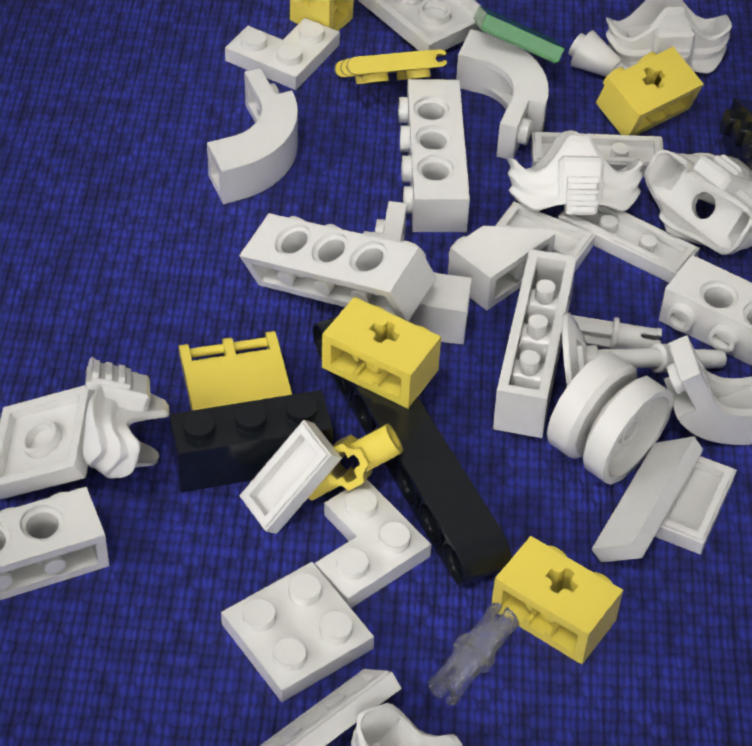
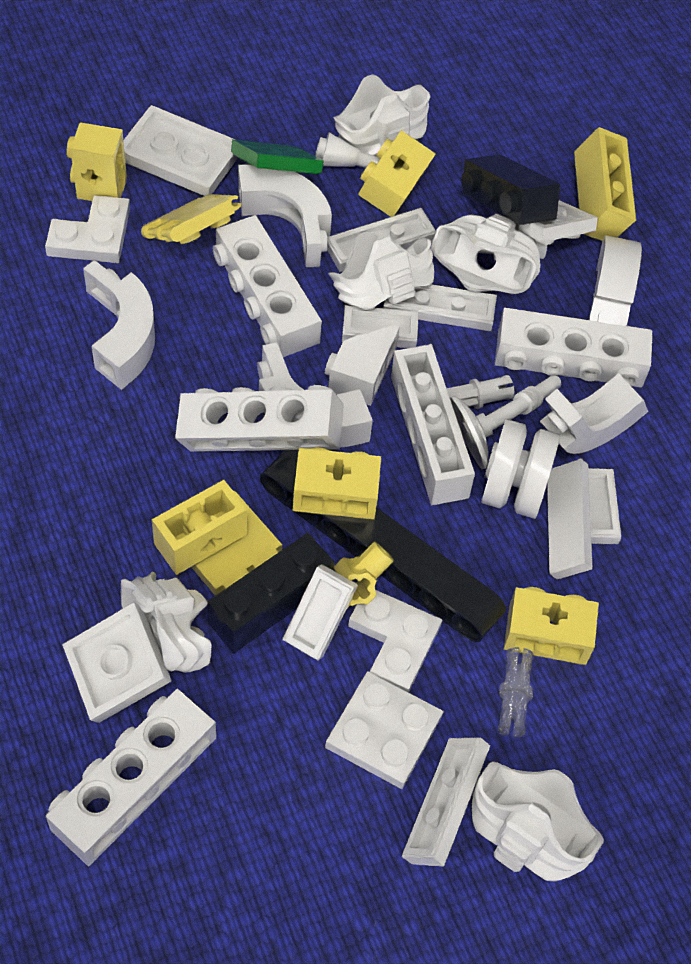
camera: 30 degrees left, 10 degrees up
(205, 339) = (200, 527): none -> light yellow brick

